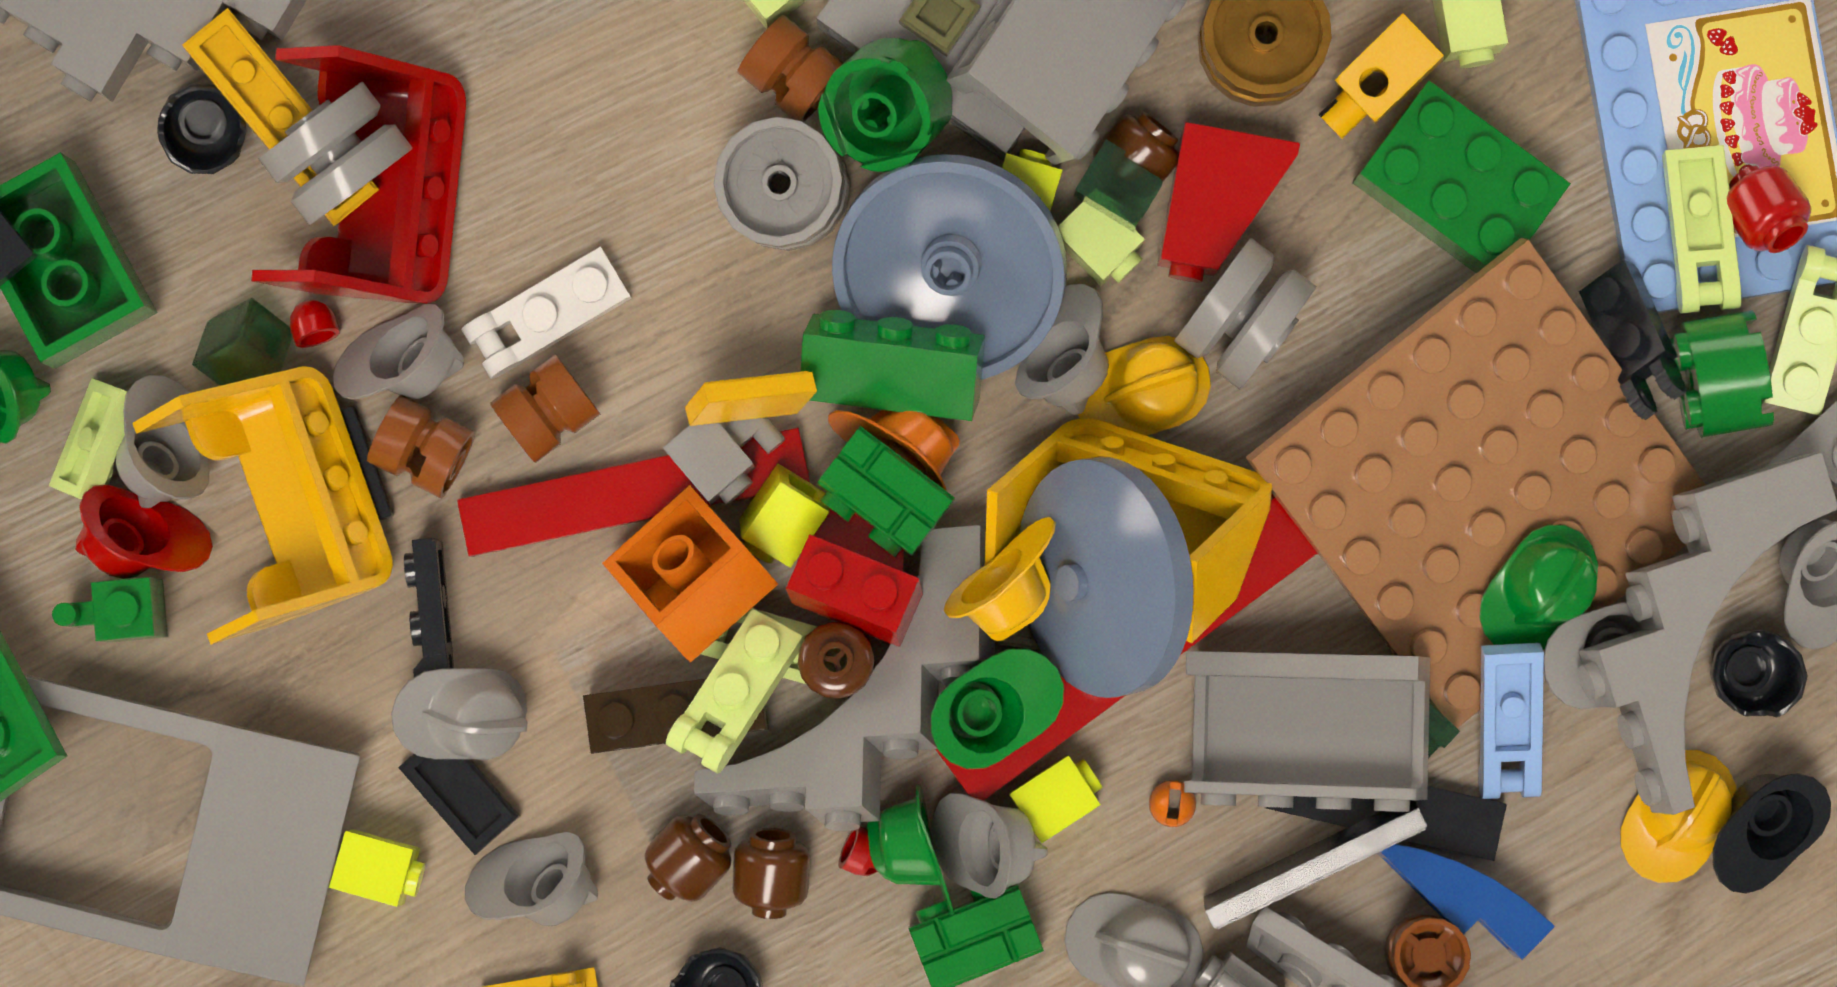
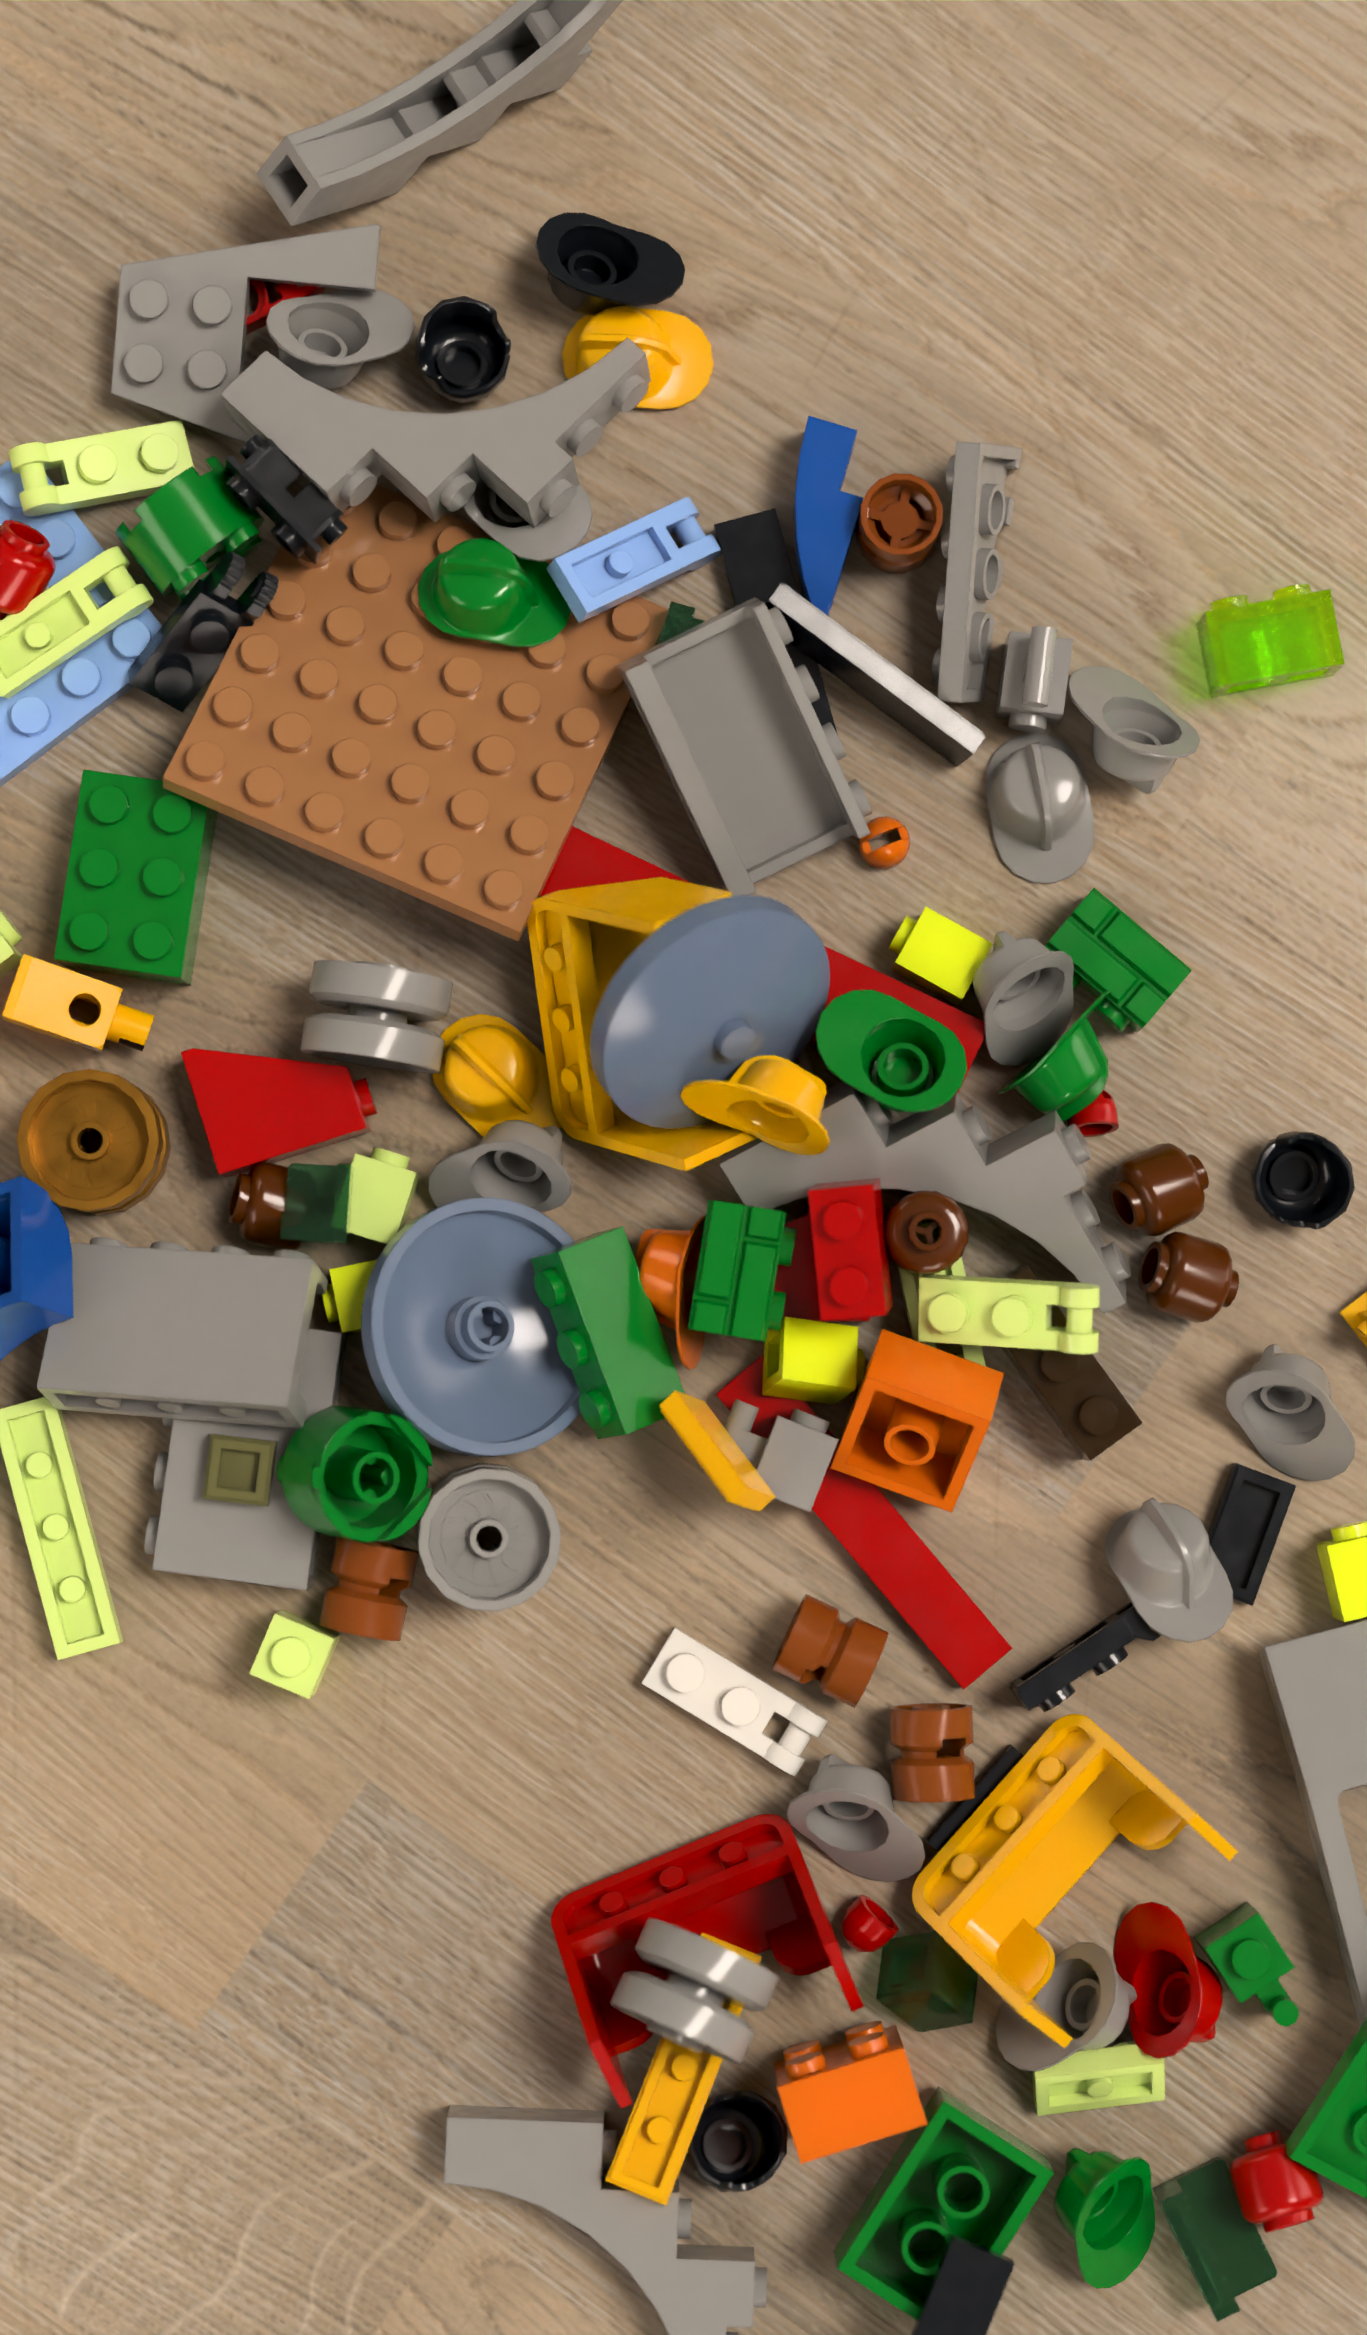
camera: 120 degrees left, 0 degrees up
(192, 235) = (848, 2091): none -> orange brick
(1683, 462) = (263, 484): none -> black hinge

